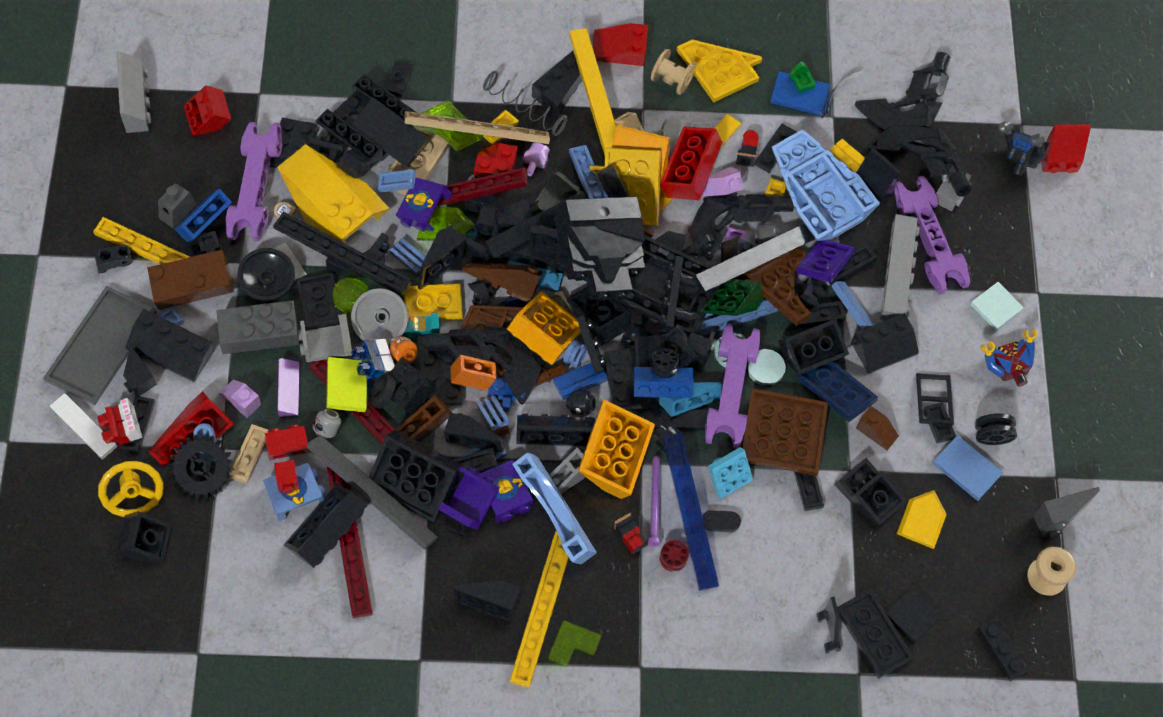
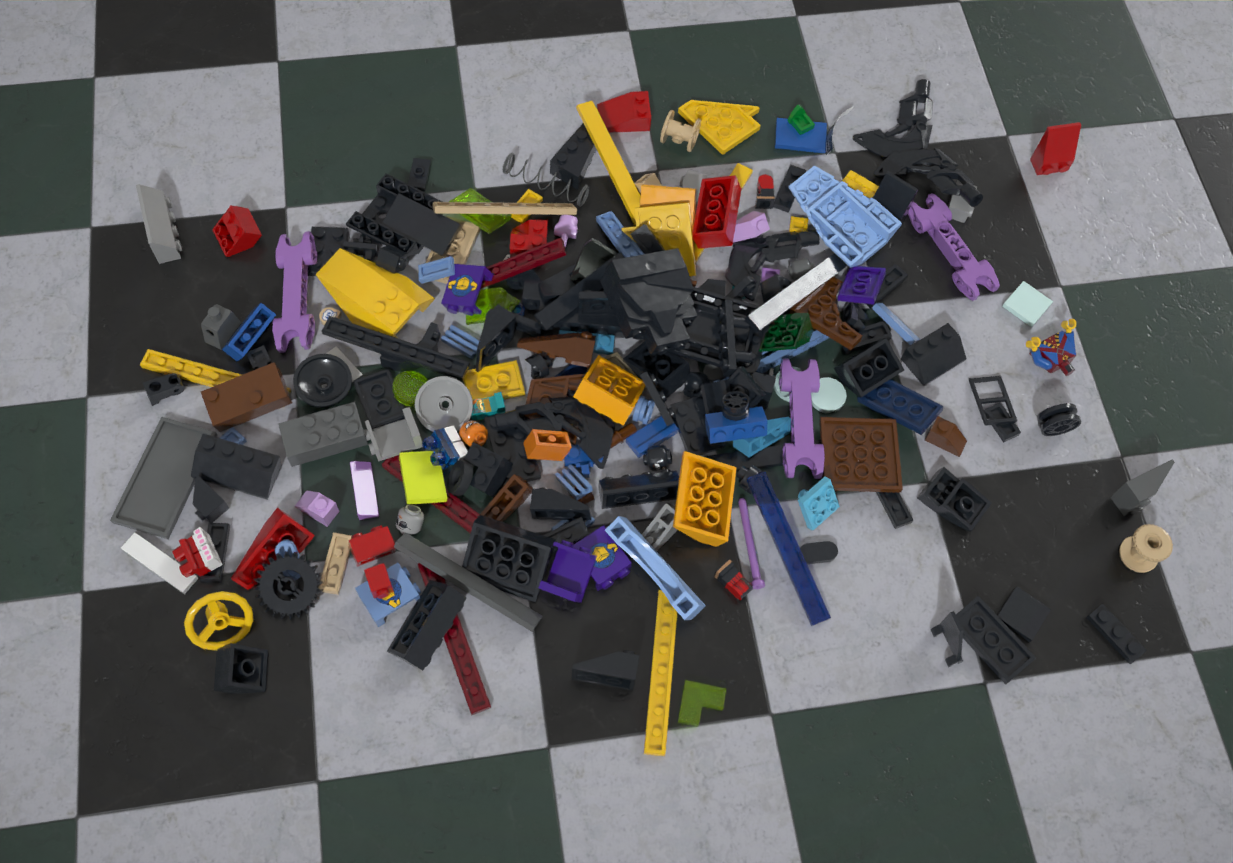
camera: 10 degrees left, 0 degrees up
(673, 556) = (779, 595): dark red wheel -> none
(899, 267) = (930, 281): light grey brick -> none
(923, 519) = (1009, 518): yellow tile -> none
(967, 468) = (1039, 461): medium blue tile -> none
(1023, 148) = (1019, 155): torso -> none

